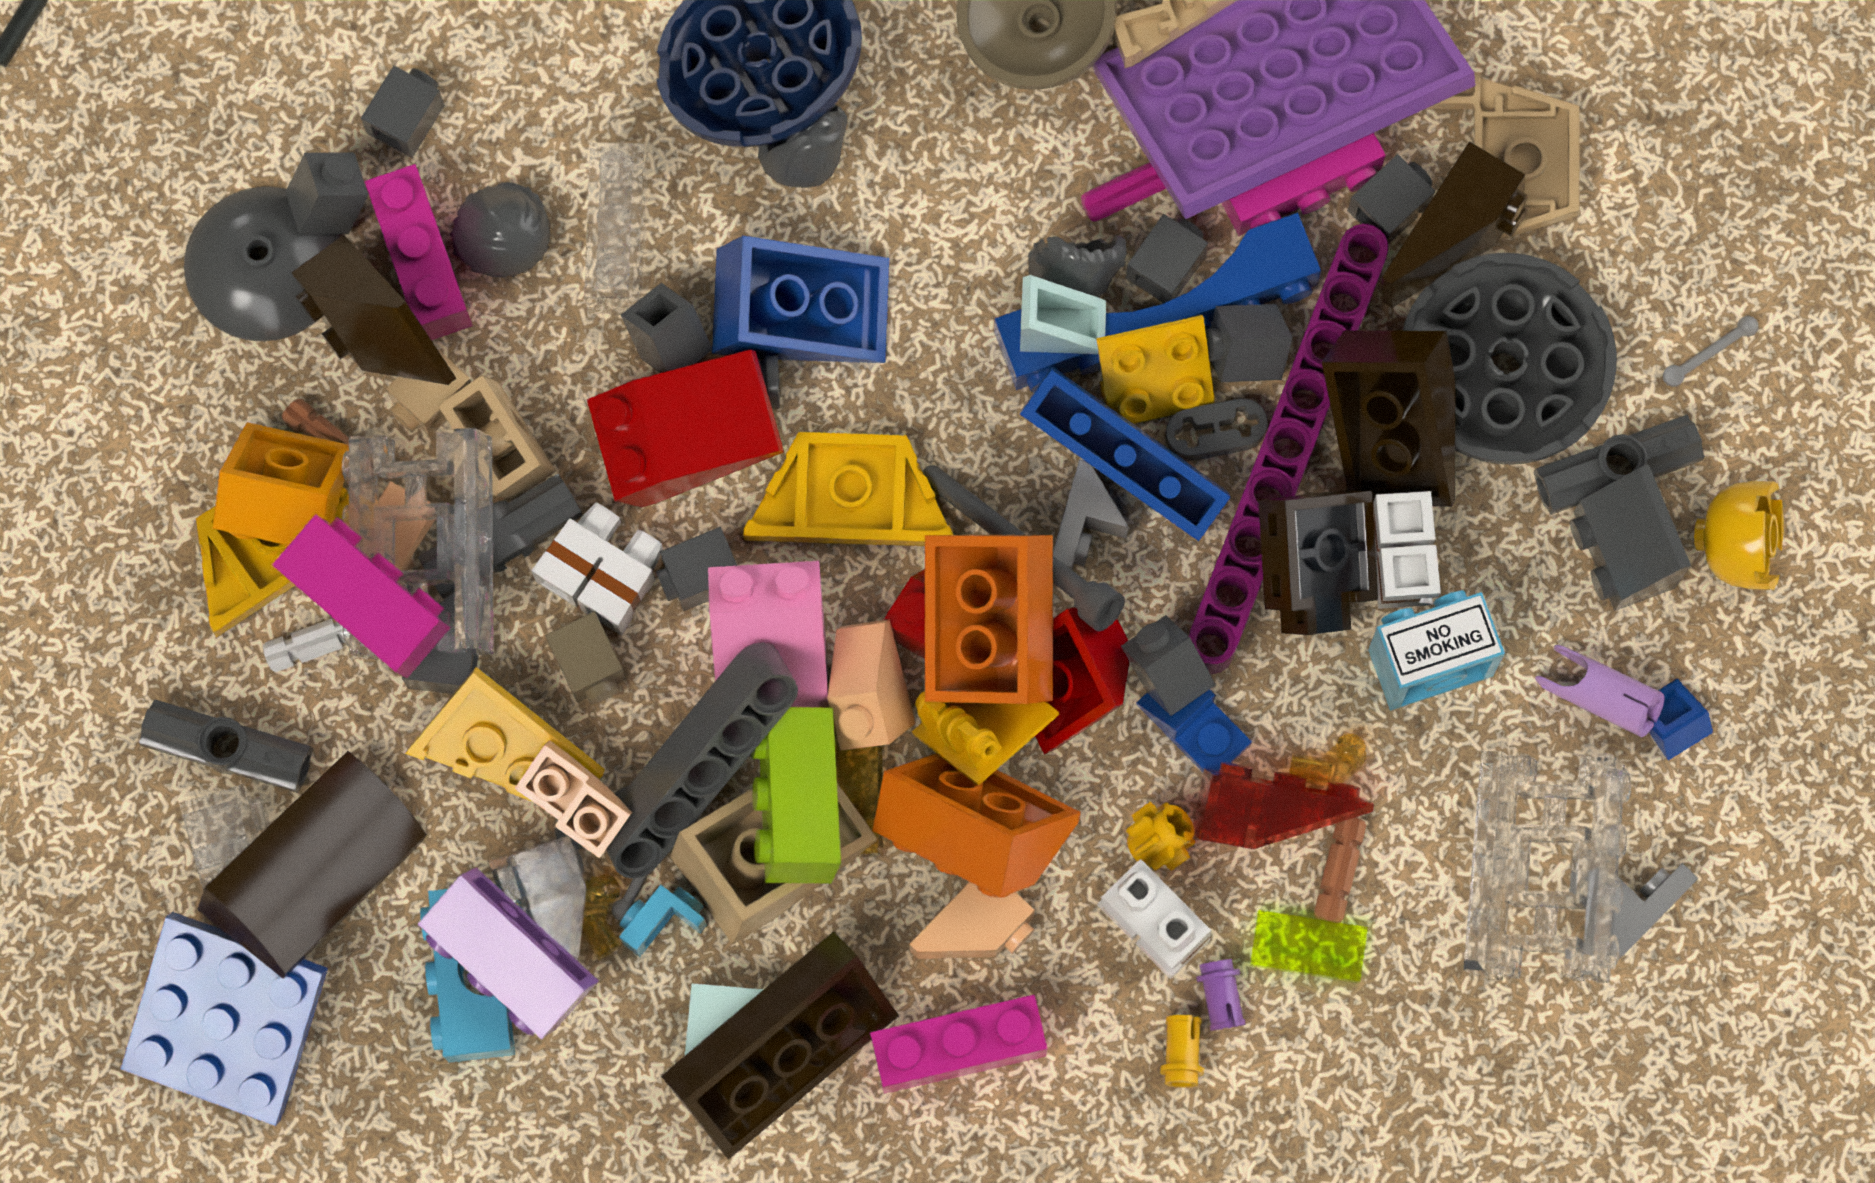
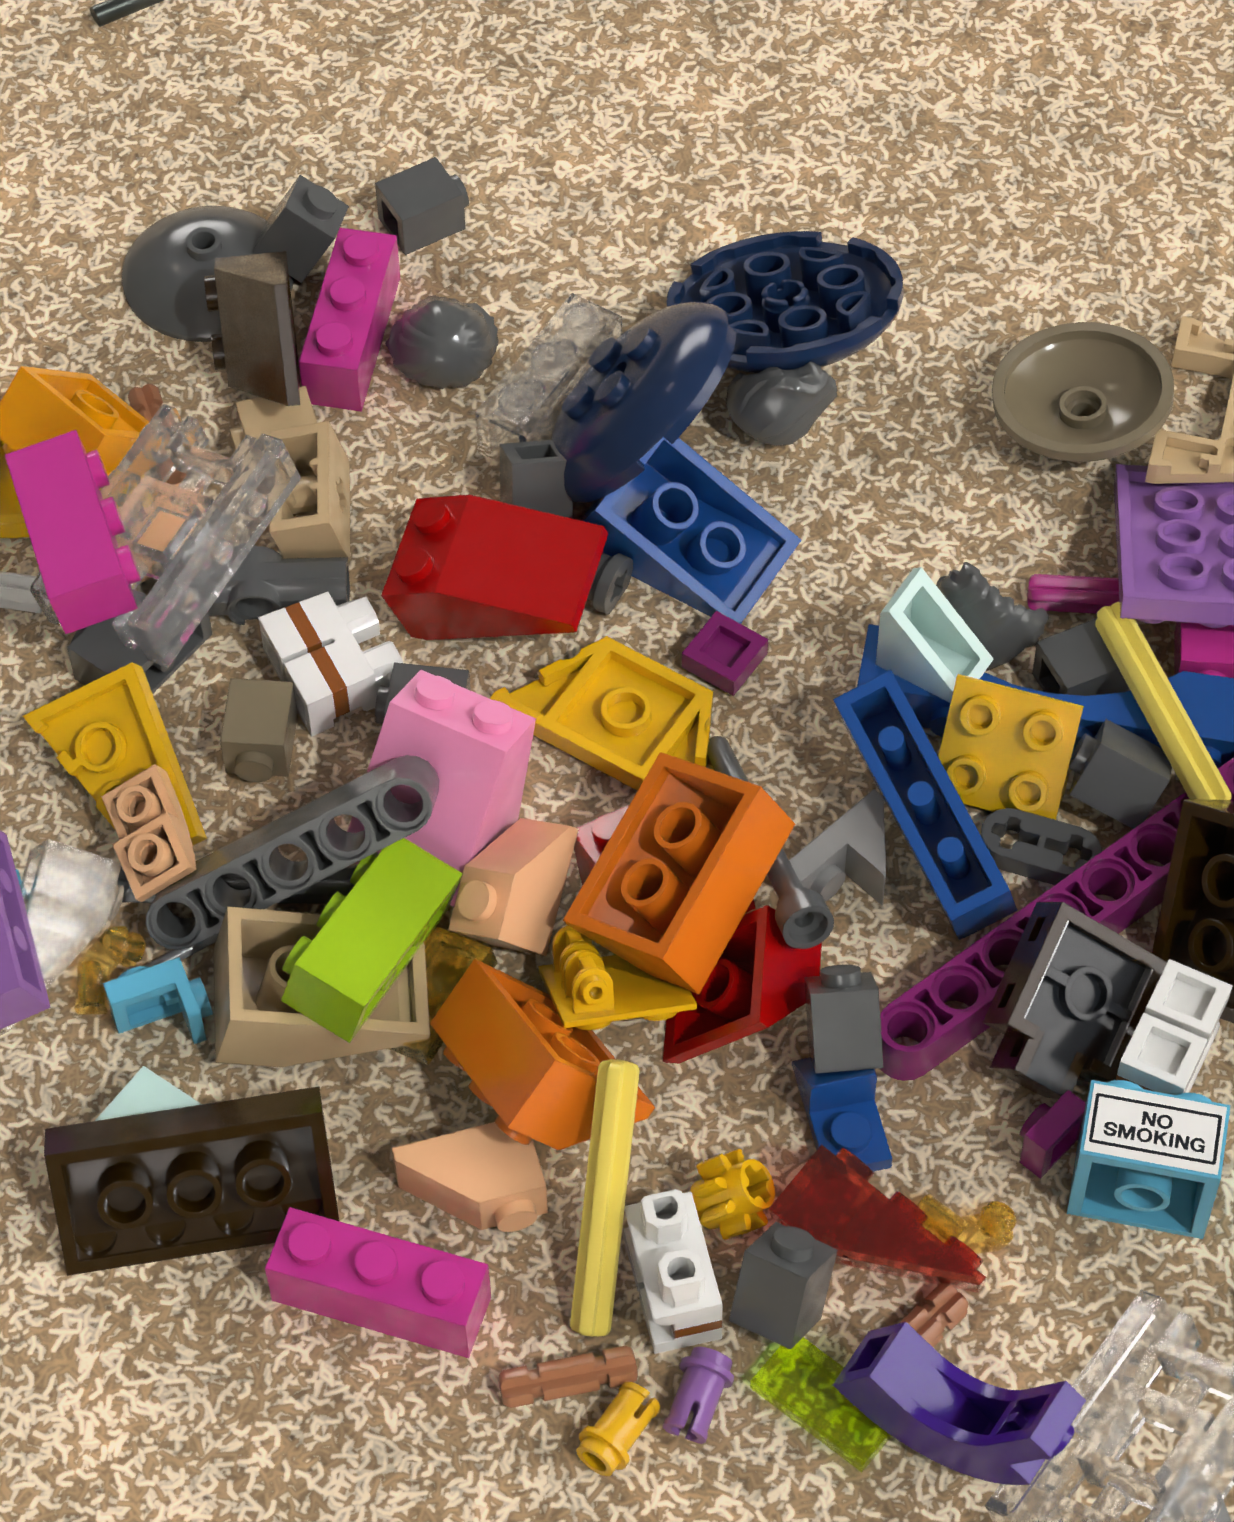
camera: 30 degrees right, 20 degrees down
(715, 220) = (638, 392): none -> dark blue brick
(892, 393) = (724, 653): none -> magenta plate
(1086, 899) = (604, 1197): none -> light yellow axle
(1125, 1032) = (567, 1376): none -> nougat axle
(1238, 887) = (783, 1284): none -> dark grey brick
(1254, 278) = (1161, 706): none -> light yellow axle
(1351, 659) = (1051, 1133): none -> magenta plate
(1412, 917) = (951, 1414): none -> dark purple arch

